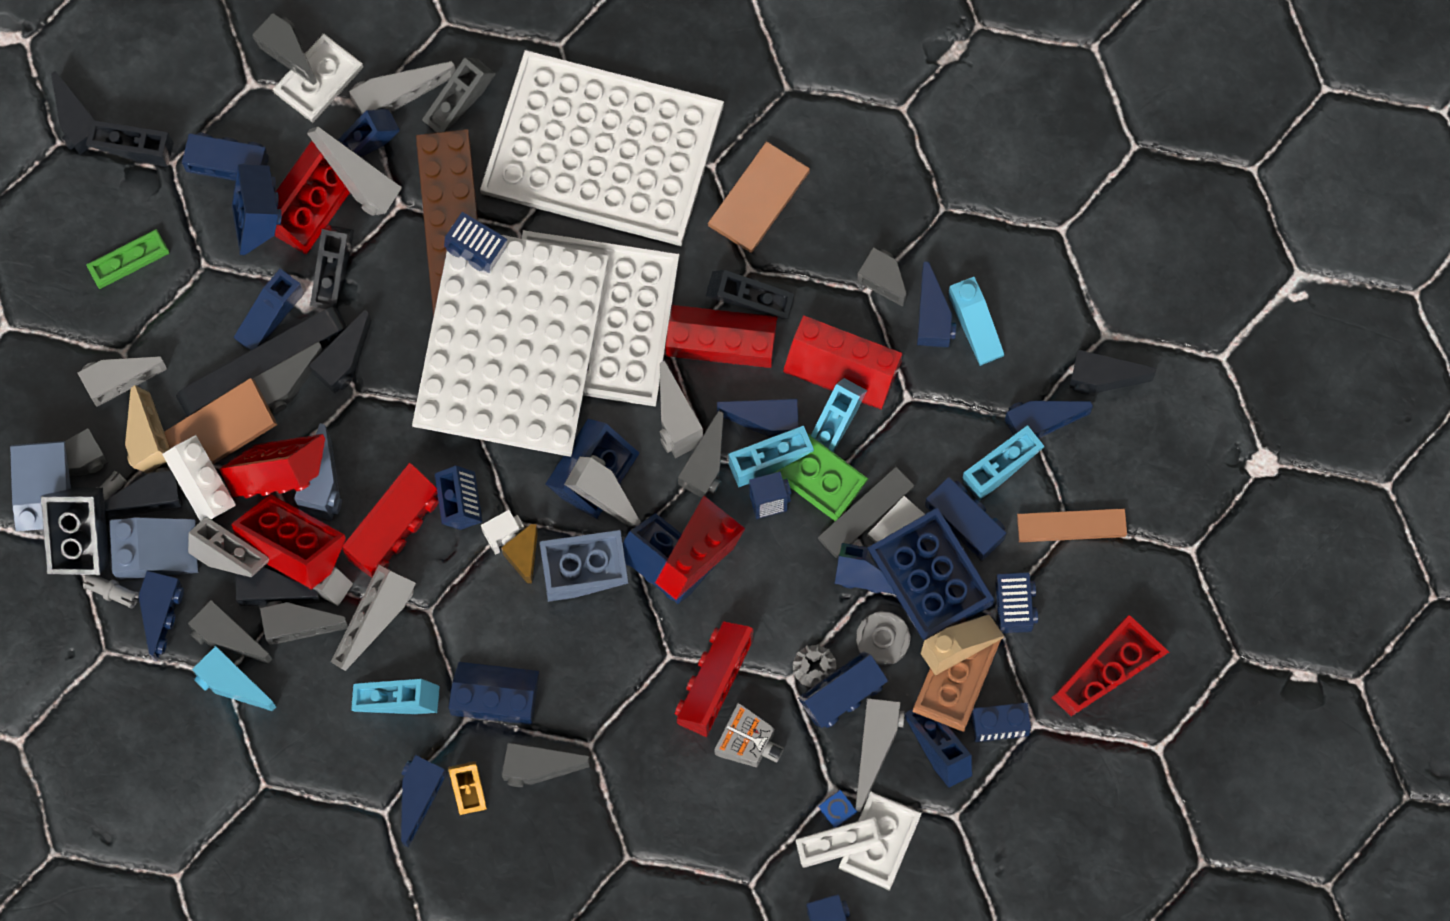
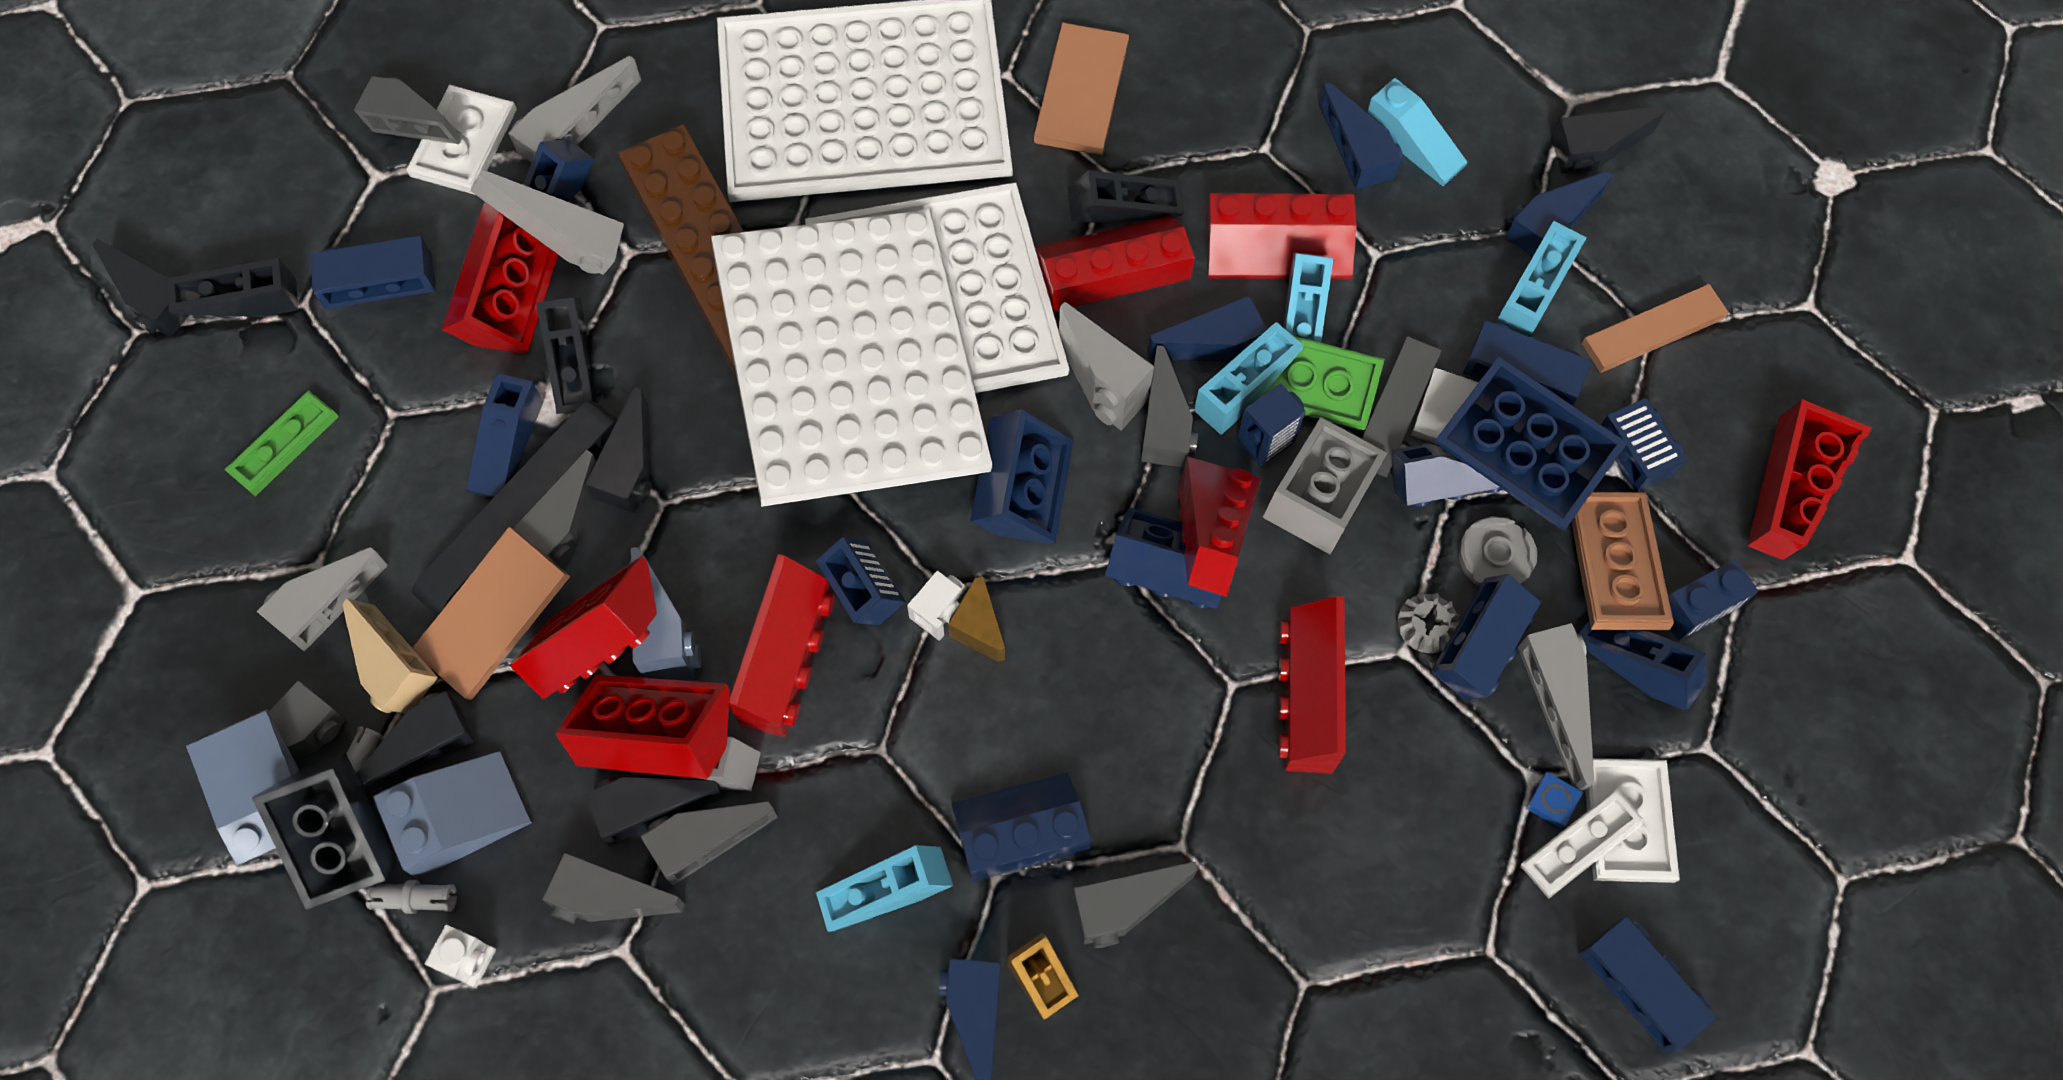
camera: 25 degrees left, 5 degrees down
(127, 638) = (460, 956): none -> white brick
(157, 604) = (488, 890): dark blue slope -> none
(198, 479) = (485, 690): white brick -> none
(224, 550) = (557, 775): light grey slope -> none
(227, 680) = (632, 959): medium azure slope -> none
(254, 206) = (432, 308): dark blue slope -> none
(379, 606) = (810, 768): light grey slope -> none
(459, 94) = (654, 92): dark grey slope -> none
(475, 243) = (752, 240): dark blue brick -> none
(583, 564) = (1068, 605): sand blue slope -> none
(601, 488) = (1053, 495): light grey slope -> none
(747, 739) = (1393, 752): light grey torso -> none
(787, 548) = (1324, 485): none -> light grey slope
(883, 276) = (1281, 123): dark grey slope -> none
(959, 643) = (1605, 520): tan slope -> none

